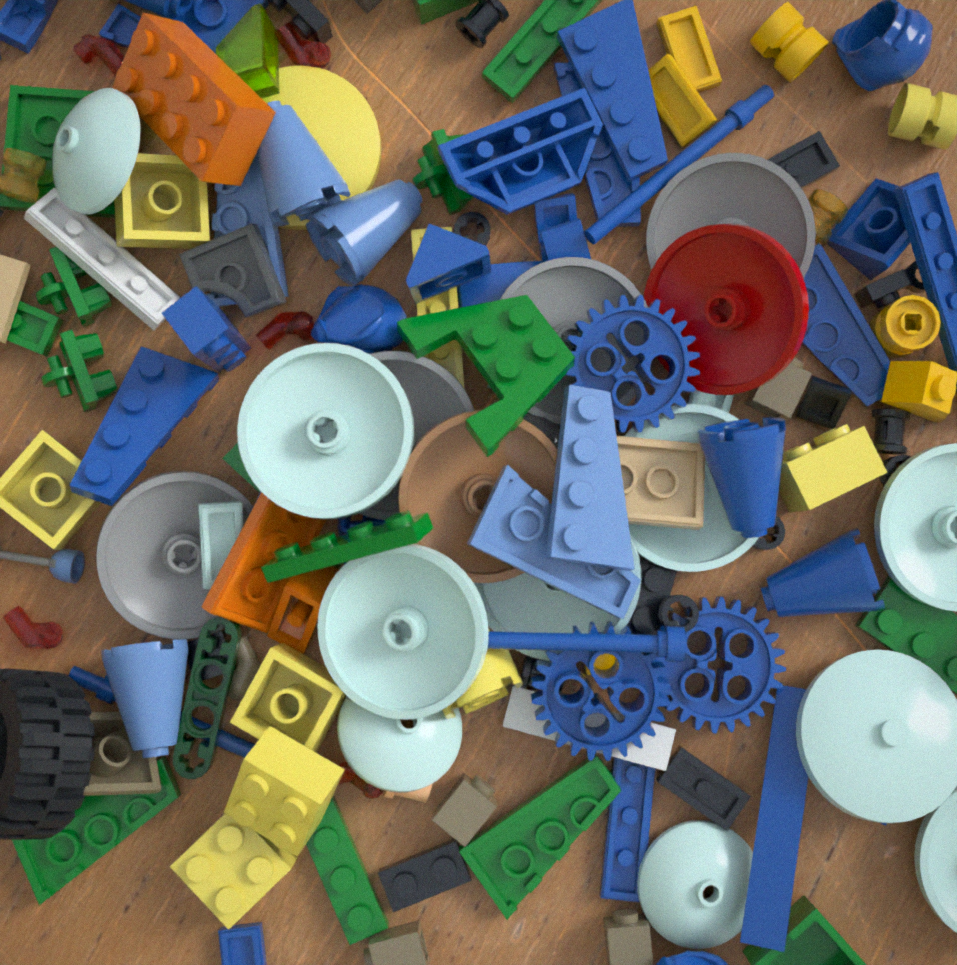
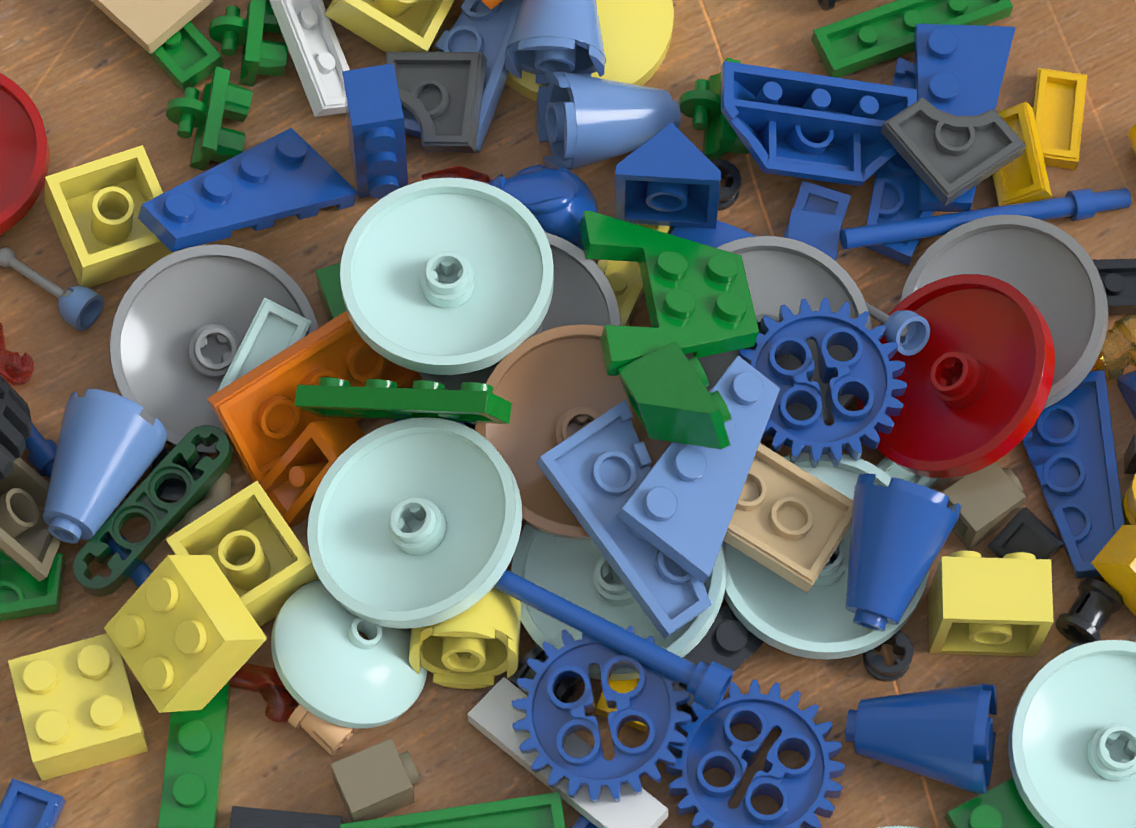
camera: 25 degrees right, 20 degrees down
(544, 455) = (673, 399): none -> green slope
(635, 127) = (950, 149): none -> dark grey tile
(670, 290) = (903, 327): none -> medium blue hinge
(683, 601) = (752, 672): black bush -> none

